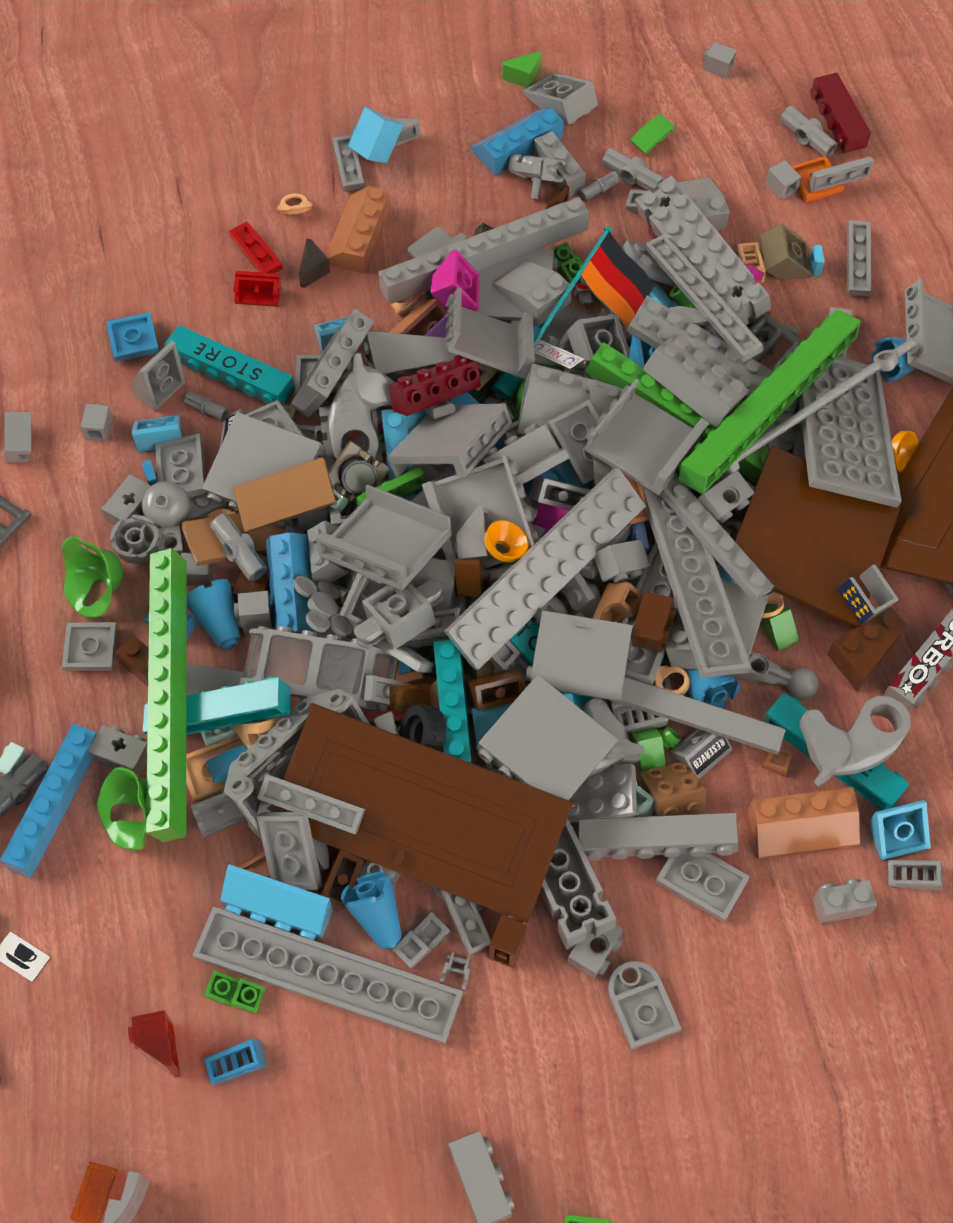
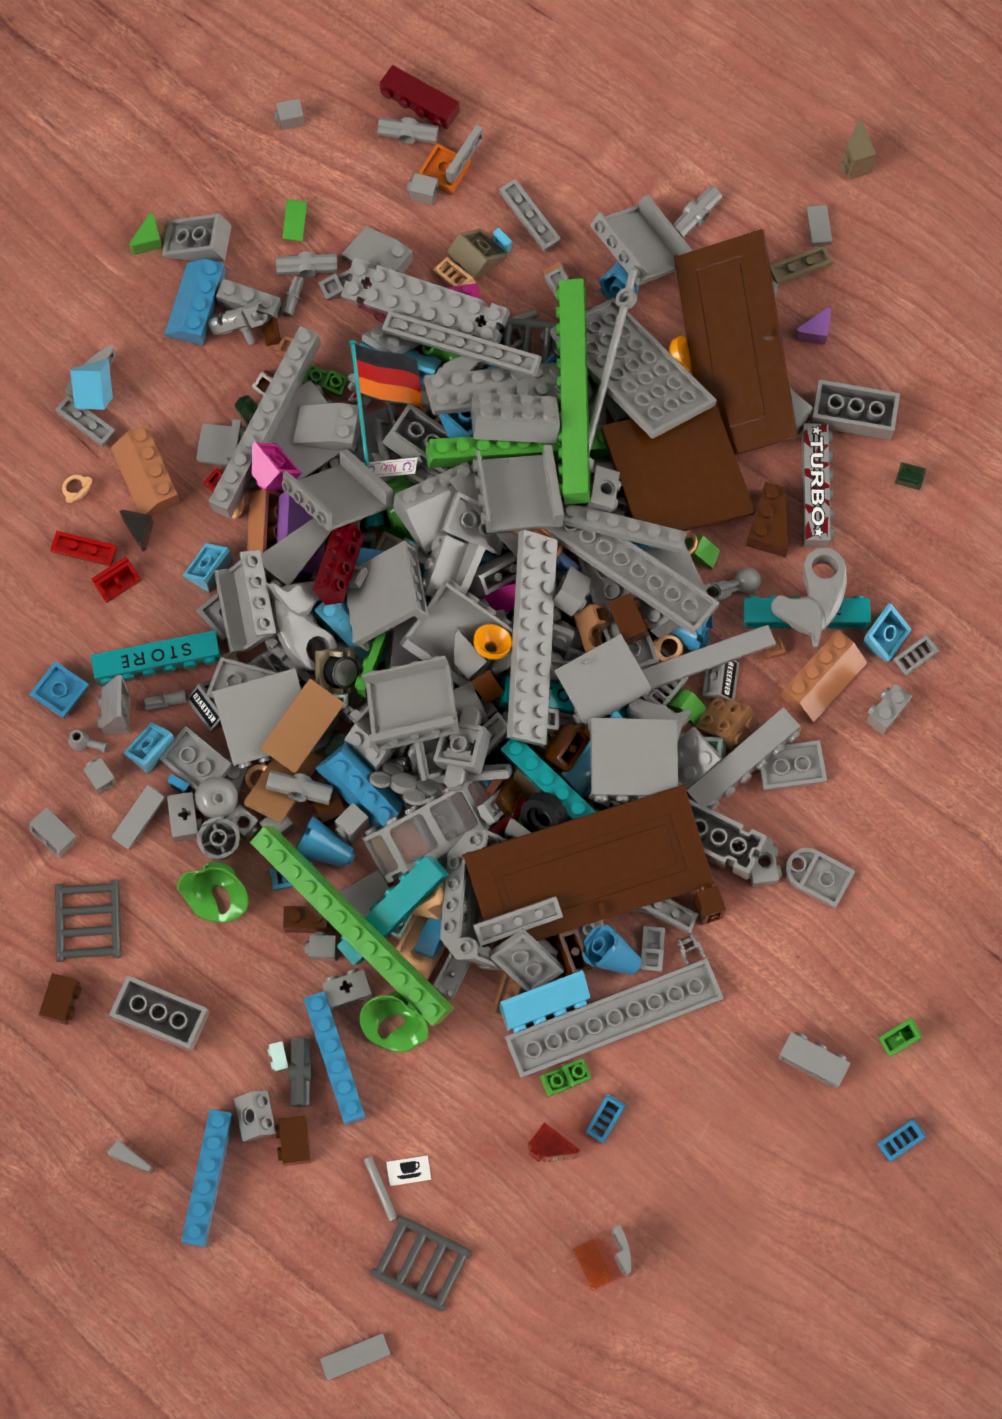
camera: 40 degrees left, 10 degrees up
(90, 646) = (256, 938): light grey plate -> none
(93, 475) = (138, 817): none -> light grey tile
(111, 386) = (85, 741): none -> light grey bar
(132, 696) = (321, 947): none -> light grey brick
(670, 737) = (694, 686): bright green plate -> none
(878, 589) = (751, 477): light grey piece -> none

